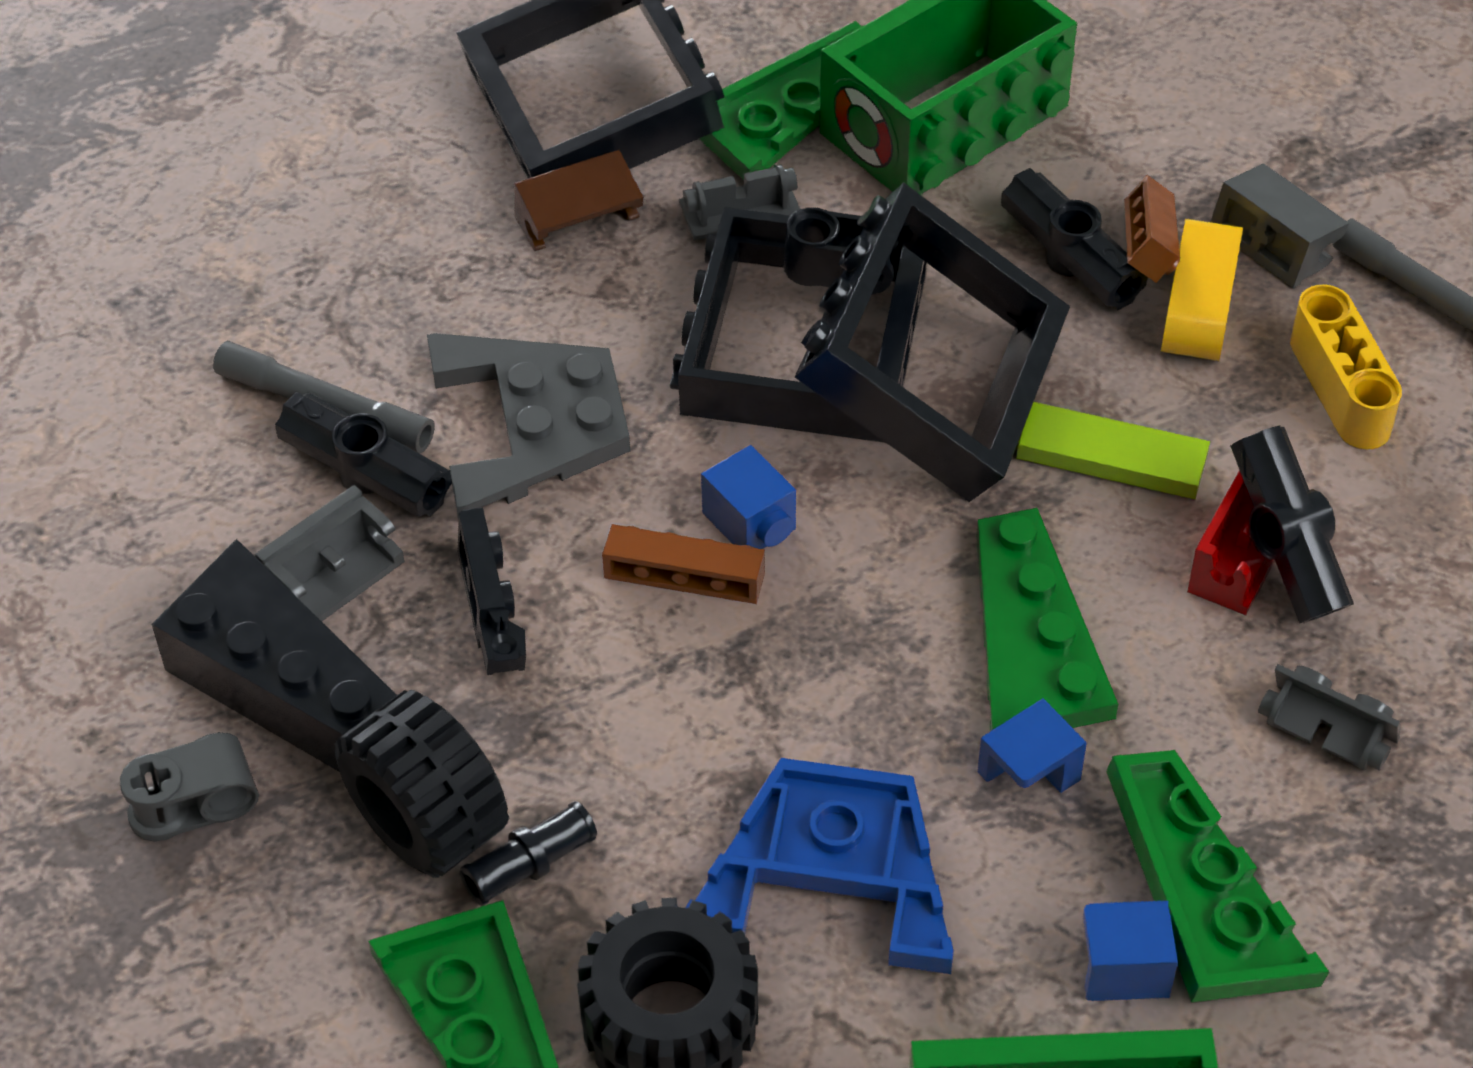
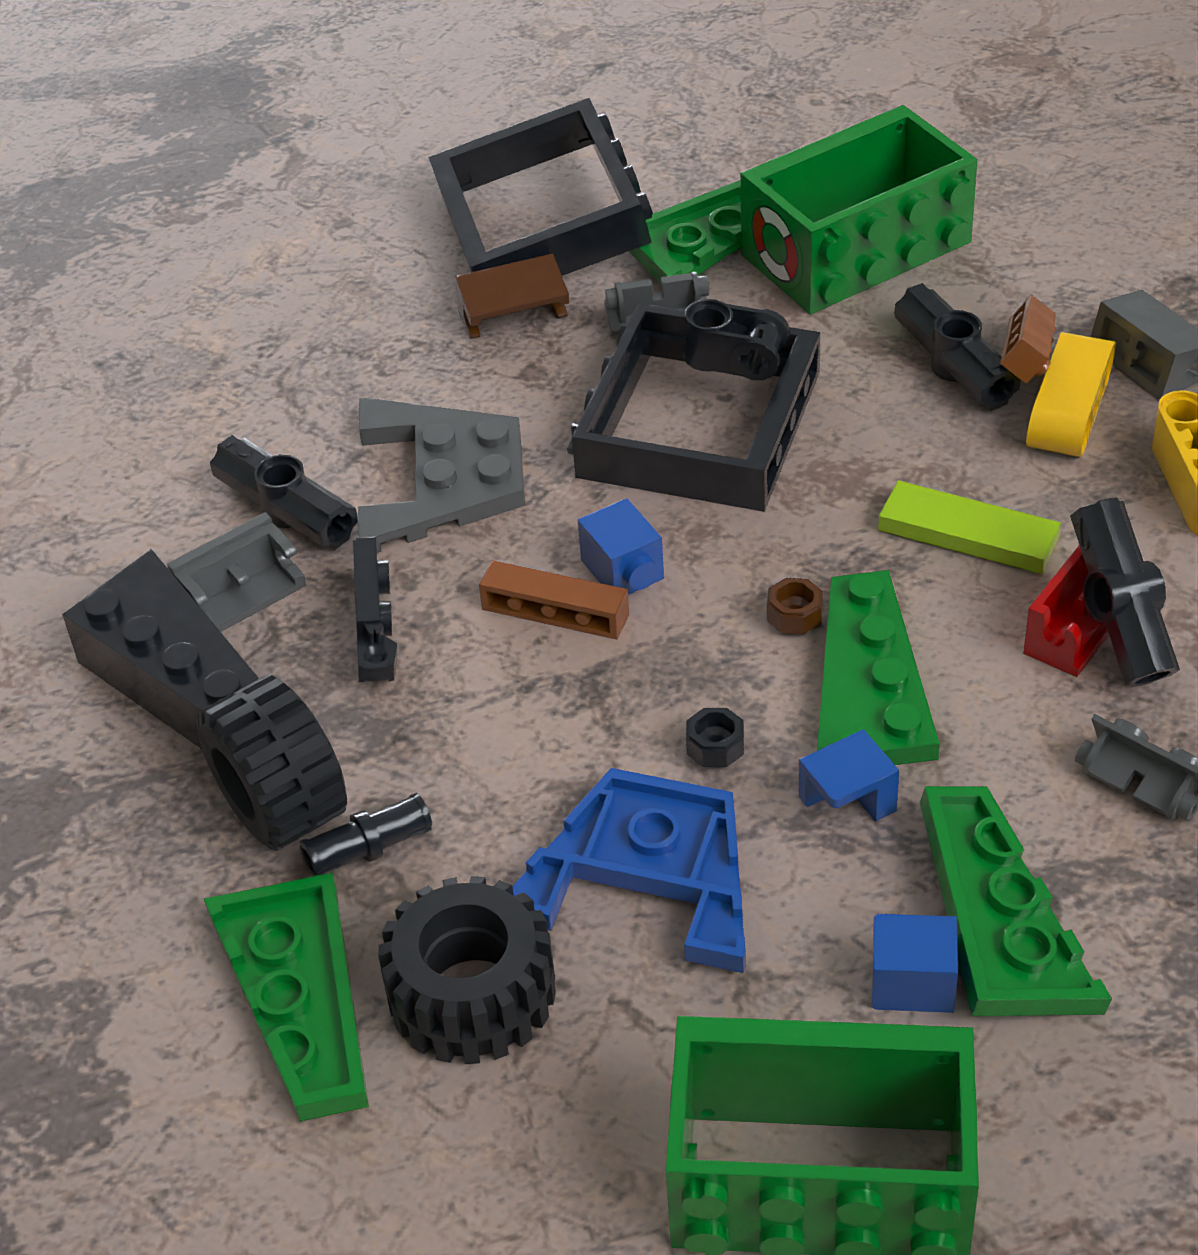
camera: 10 degrees right, 5 degrees down
(192, 784) = (77, 758): dark grey piece -> none
(268, 375) = (214, 424): dark grey piece -> none
(882, 712) = (715, 737): none -> black tile
(885, 407) = (760, 473): black window -> none
(943, 555) = (794, 605): none -> reddish brown tile

